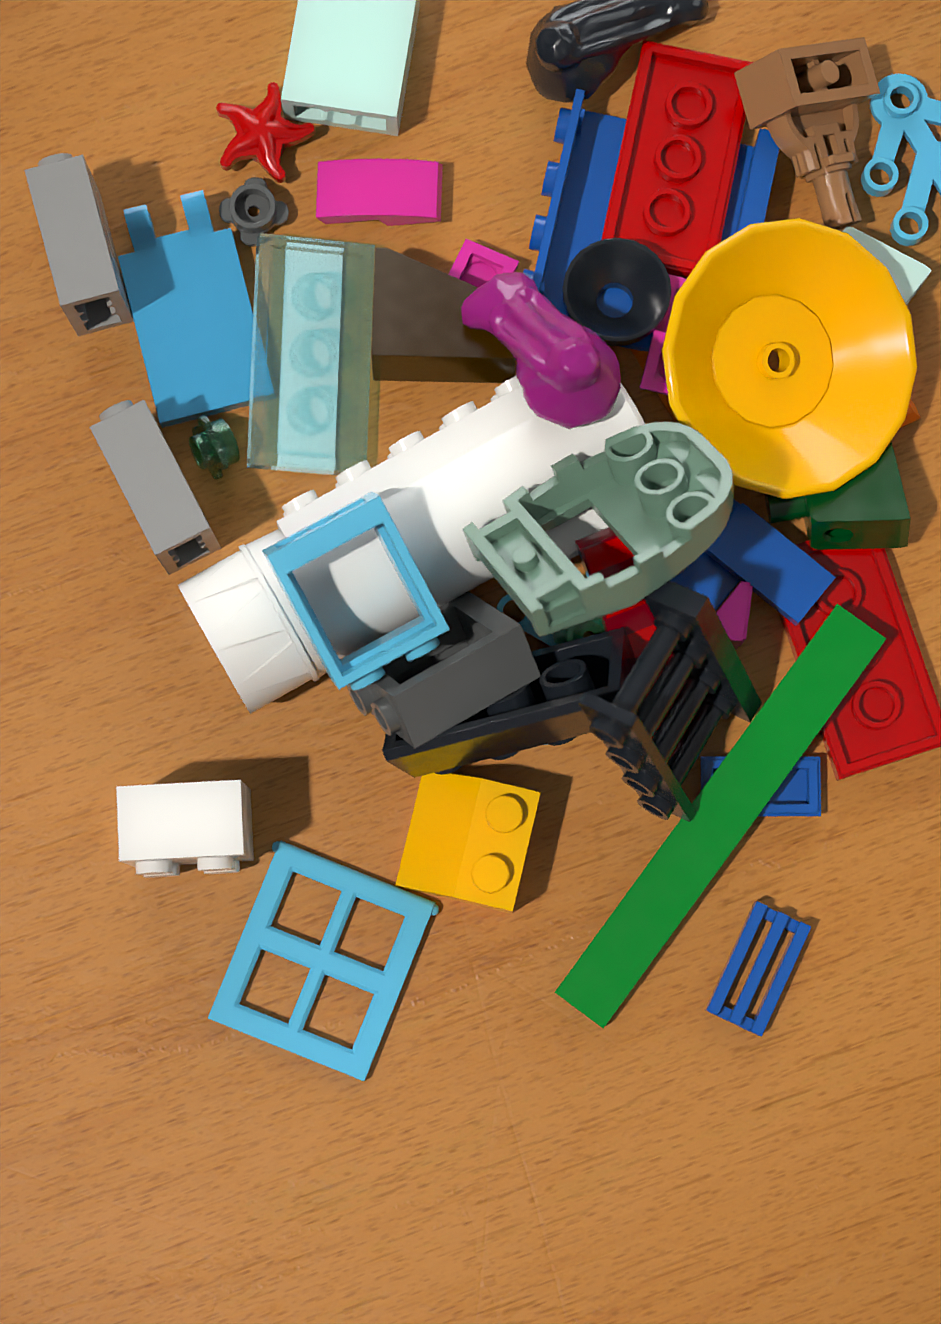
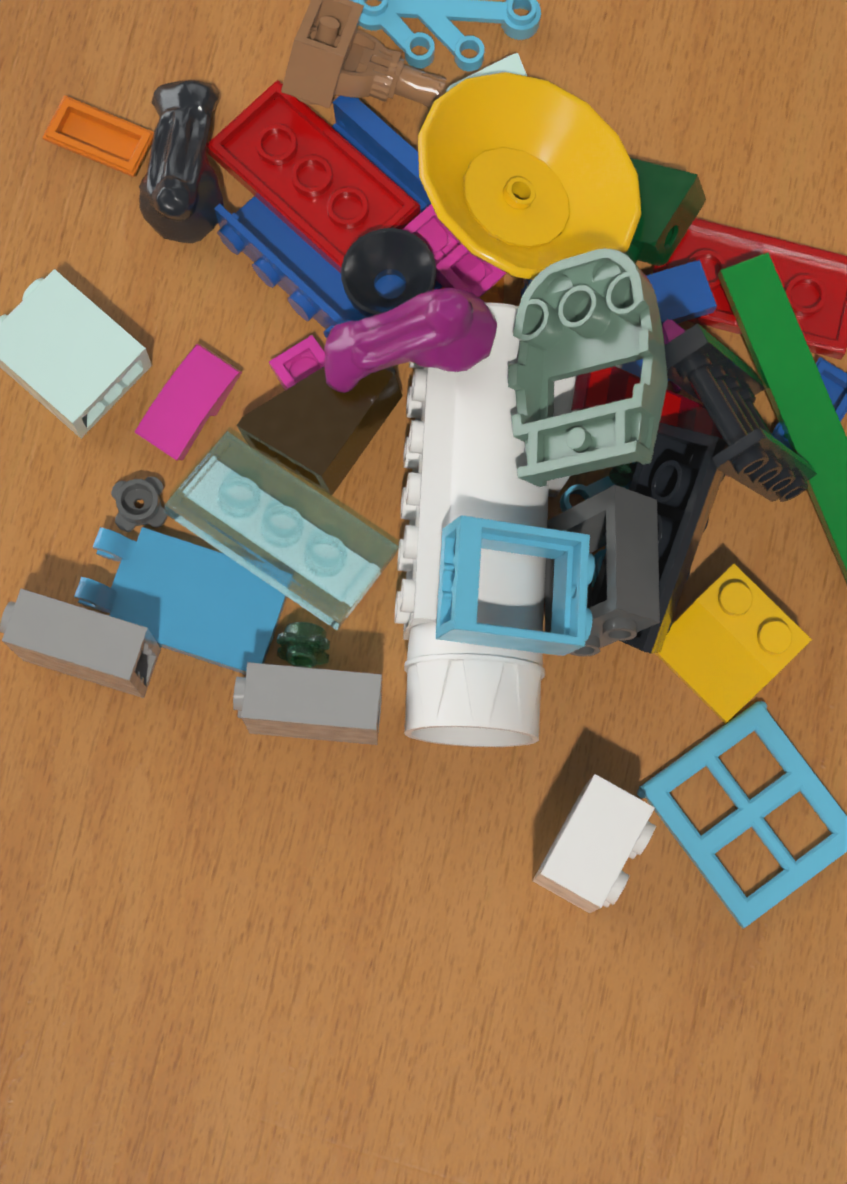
camera: 60 degrees left, 5 degrees down
(262, 133) = (84, 459): red animal -> none

